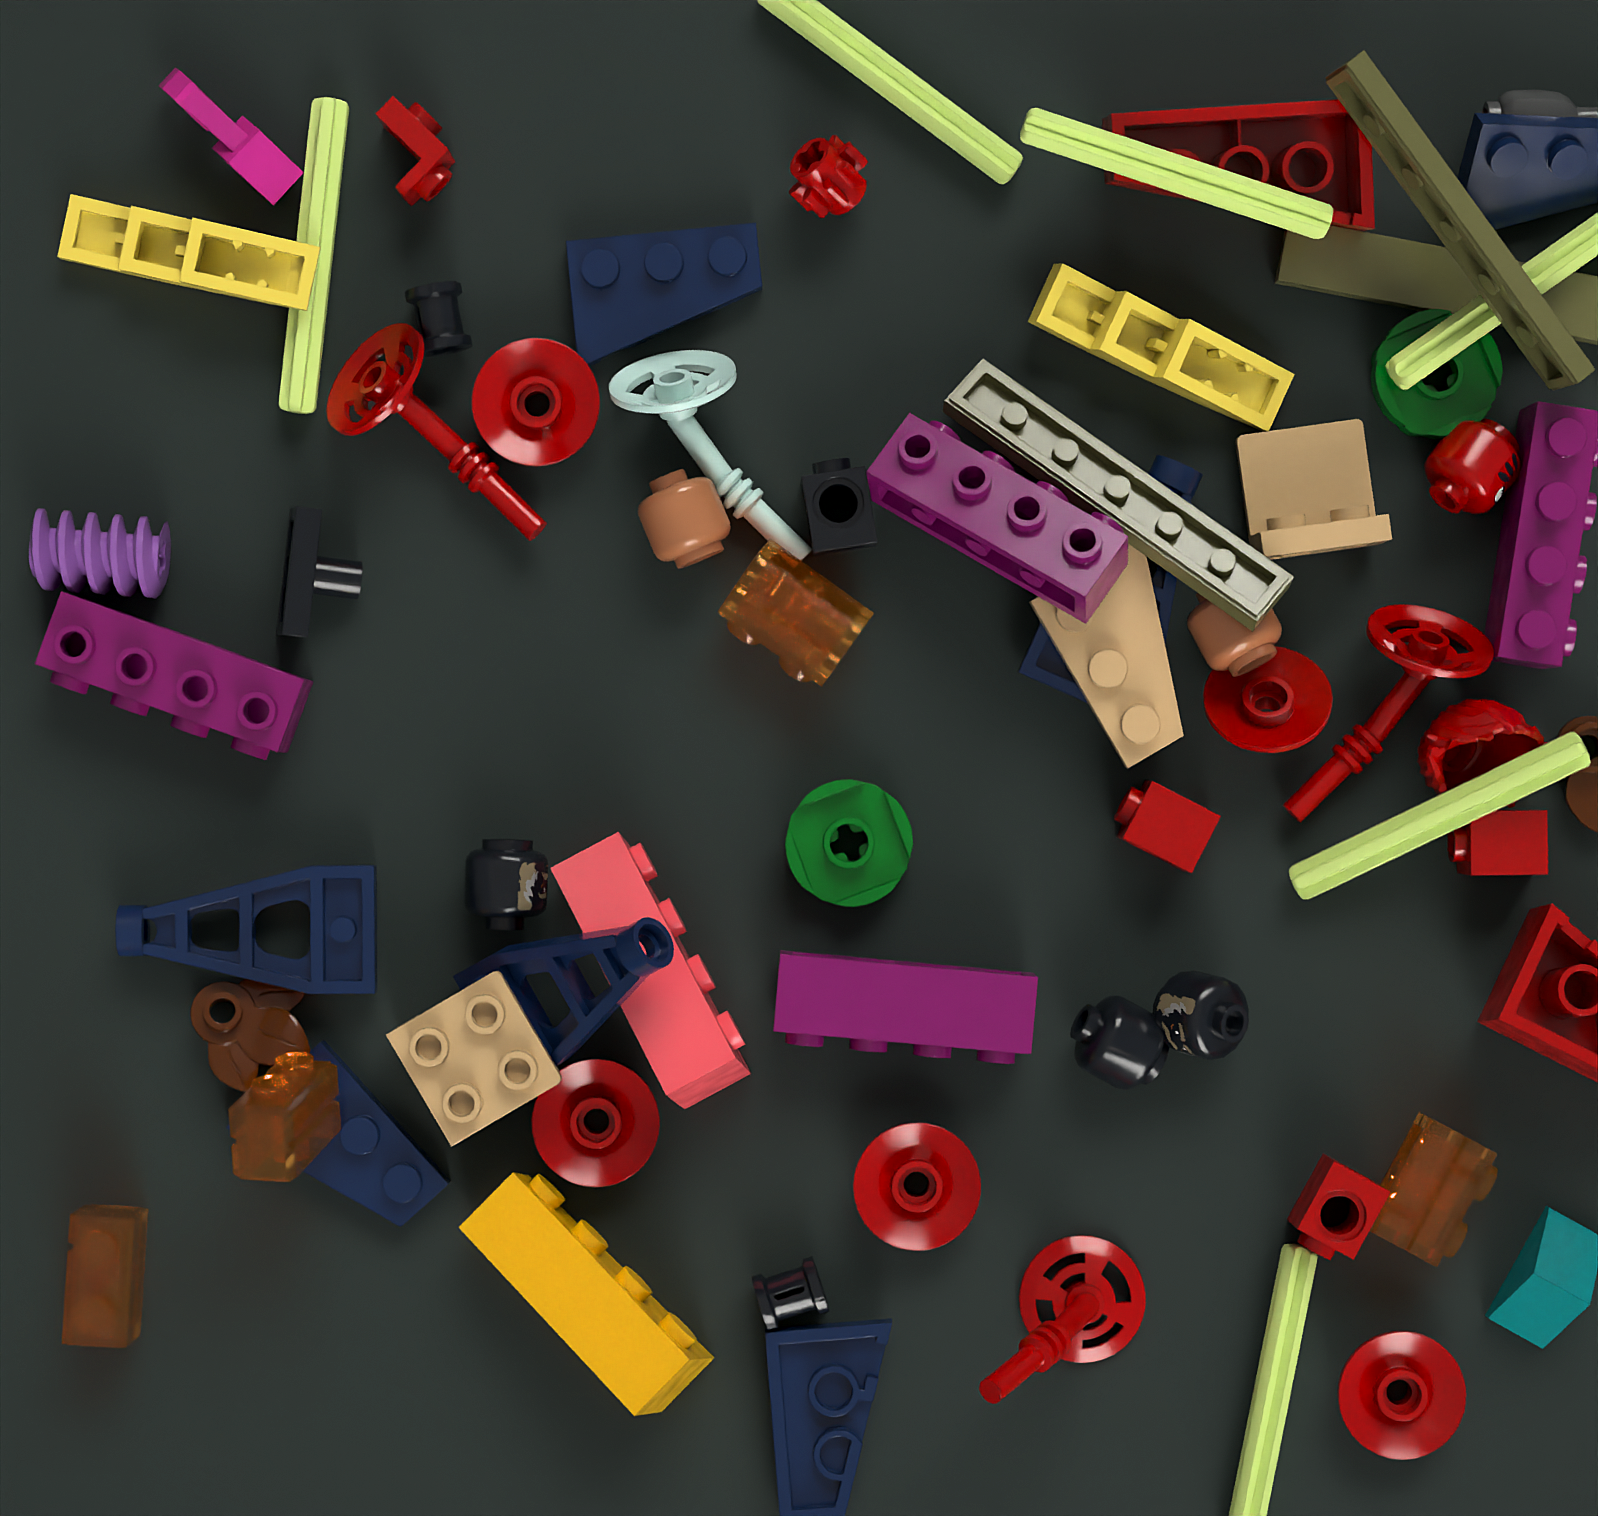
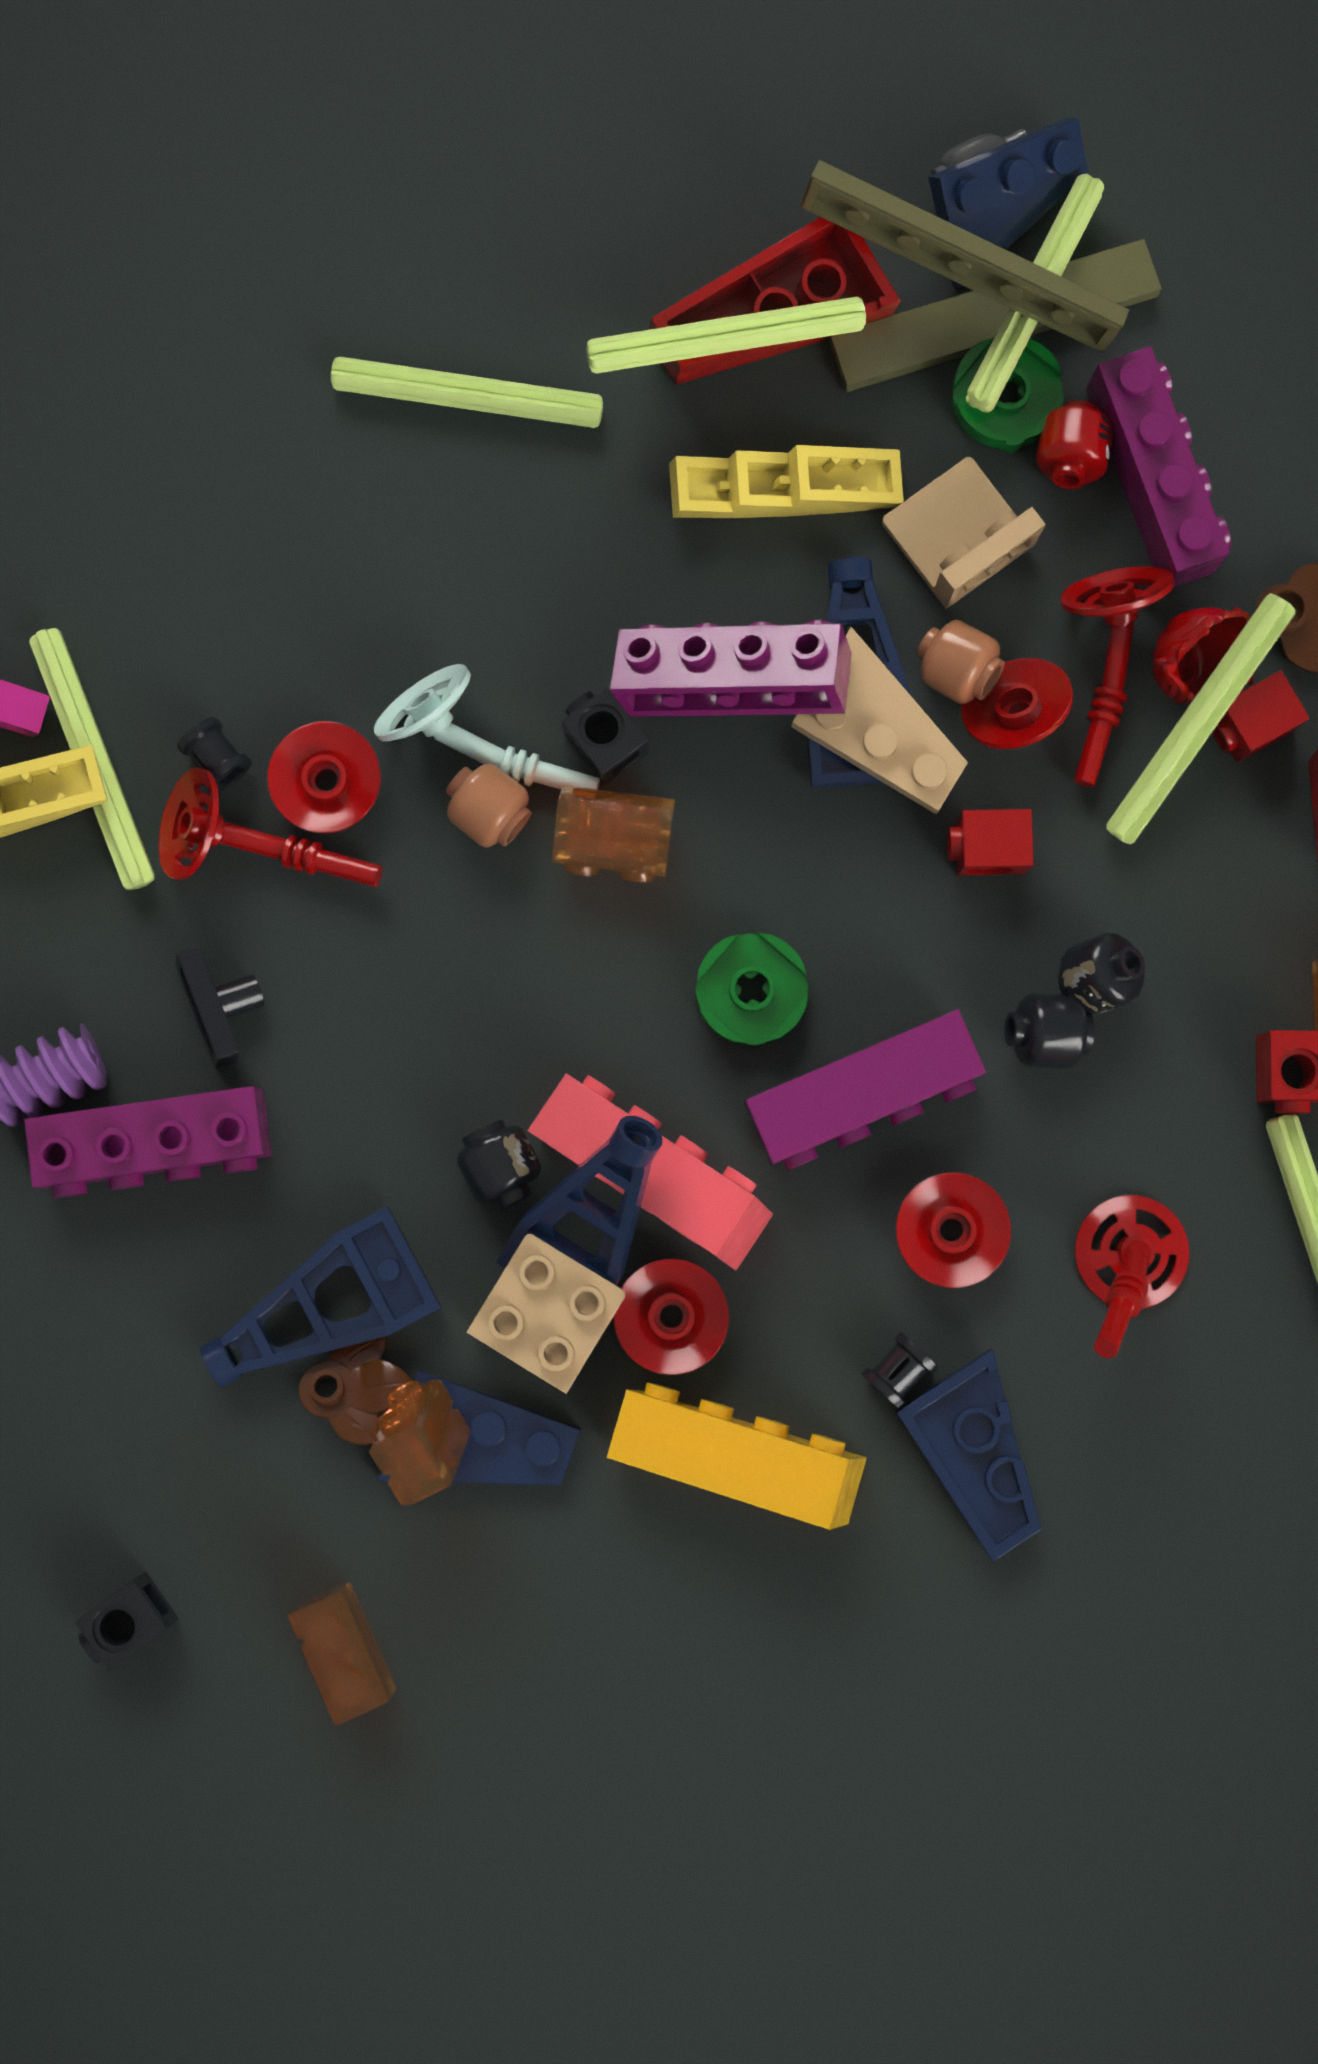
camera: 25 degrees left, 5 degrees down
(417, 134) = (125, 623): red bracket -> none
(655, 281) = (369, 638): dark blue wing -> none
(828, 176) = (459, 486): red gear -> none
(1105, 482) = (862, 607): tile -> none

